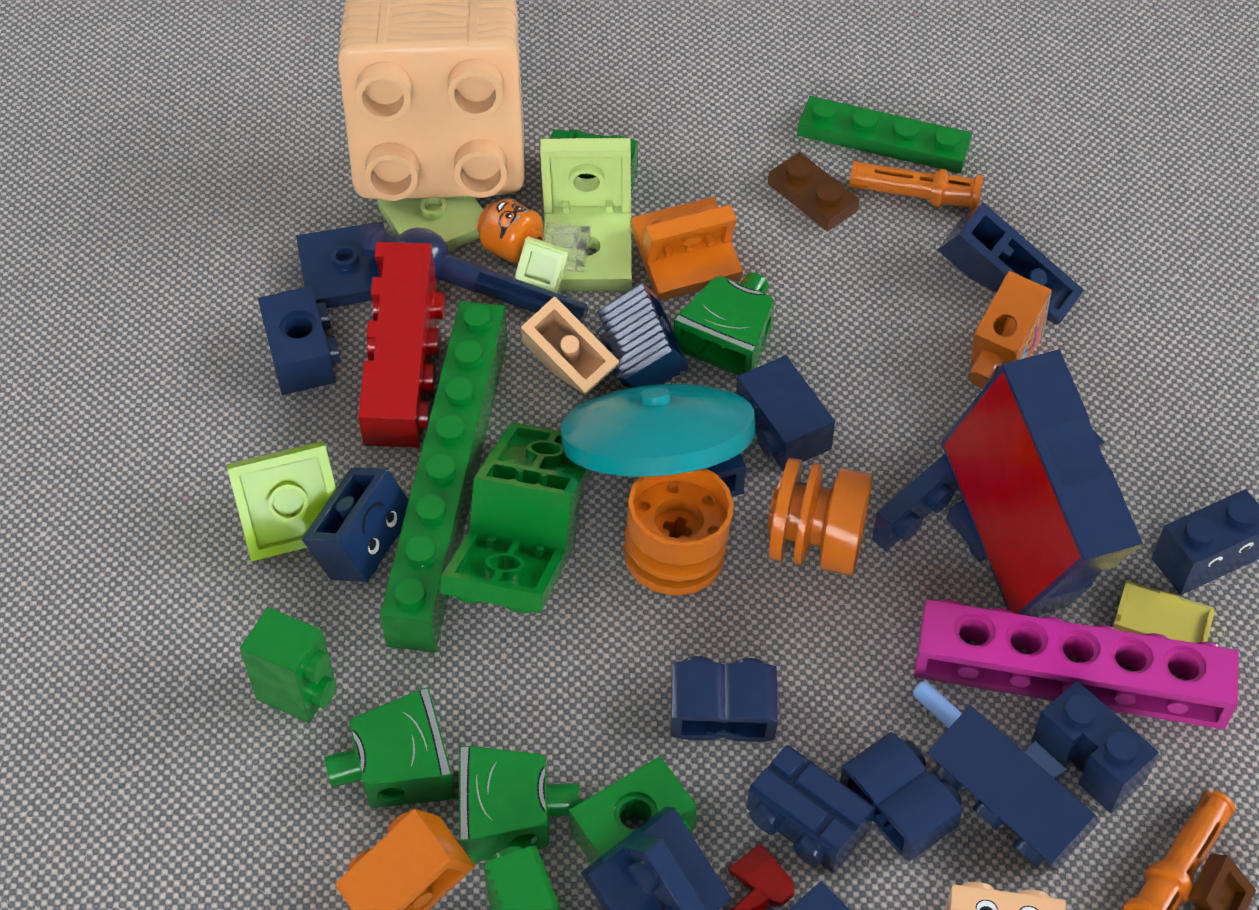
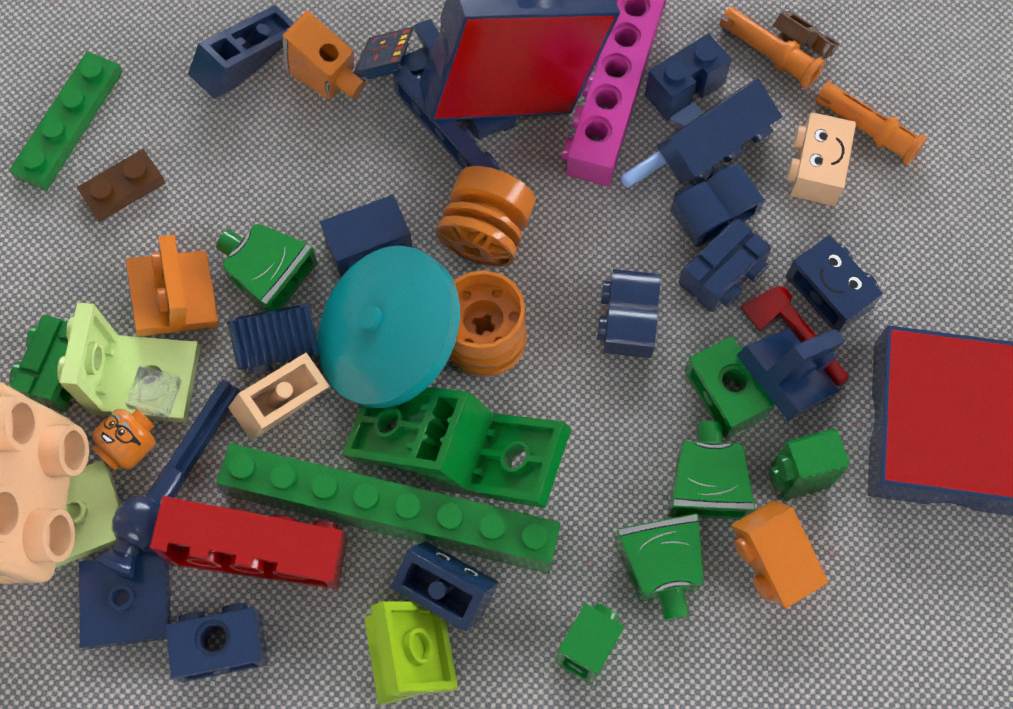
camera: 85 degrees left, 15 degrees up
(542, 264) = (176, 412): yellowish green tile -> none
(938, 187) = (143, 88): orange pin -> none

